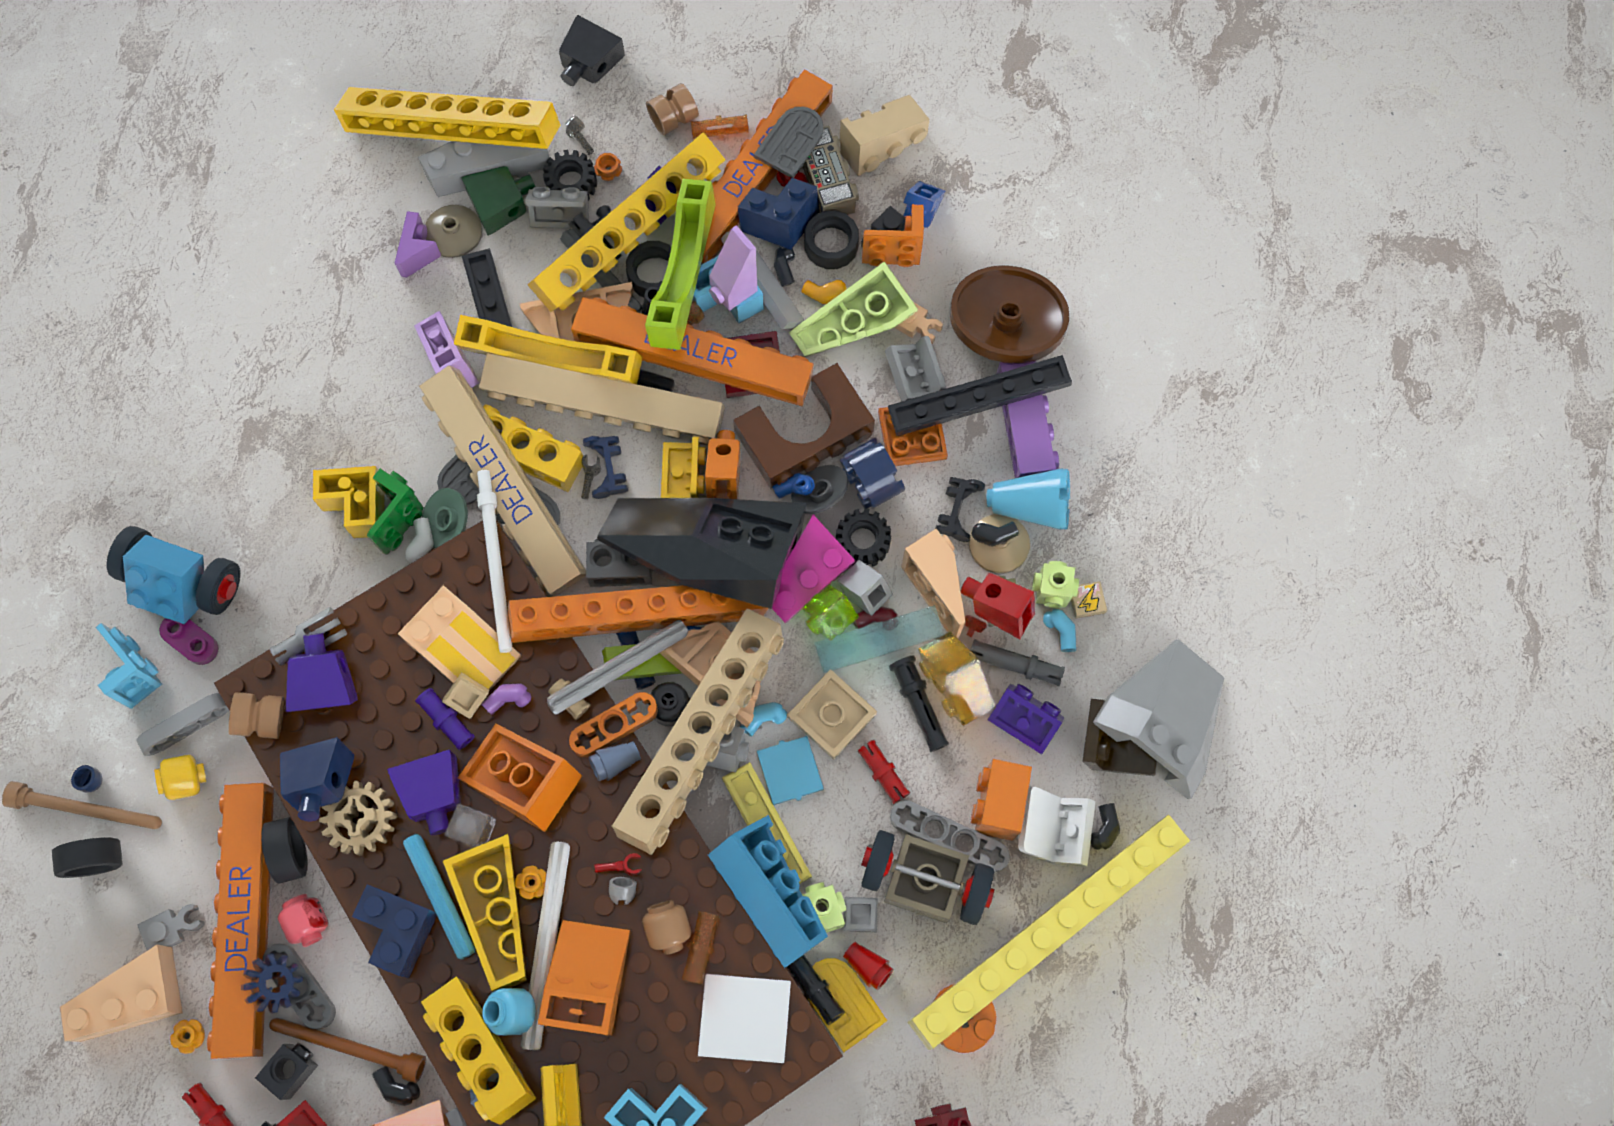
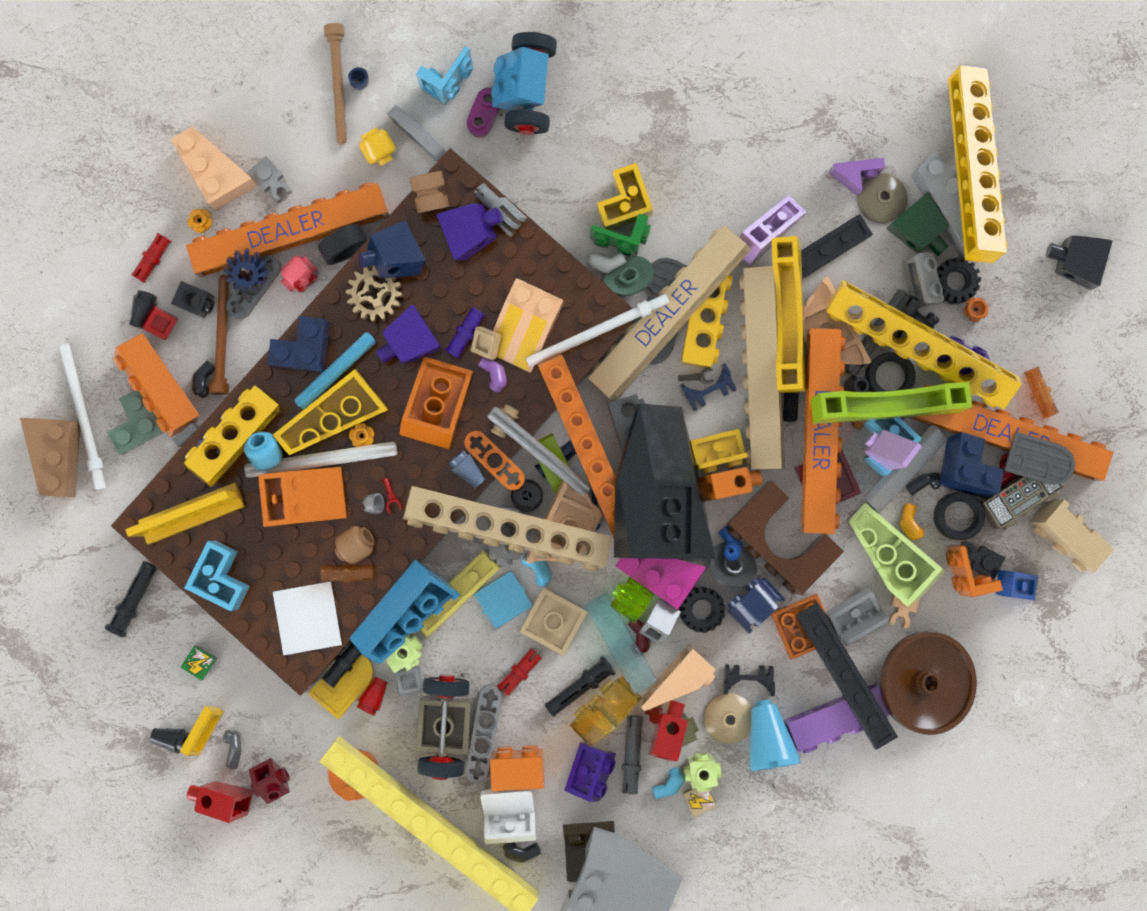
camera: 75 degrees right, 15 degrees up
(87, 857) = (300, 103): black tyre -> none
(470, 826) = (388, 379): clear brick -> none
(573, 129) = (1004, 268): clear smoke hand -> none
(672, 109) = (1044, 348): medium nougat wheel -> none
(993, 535) = (729, 713): black arm -> none

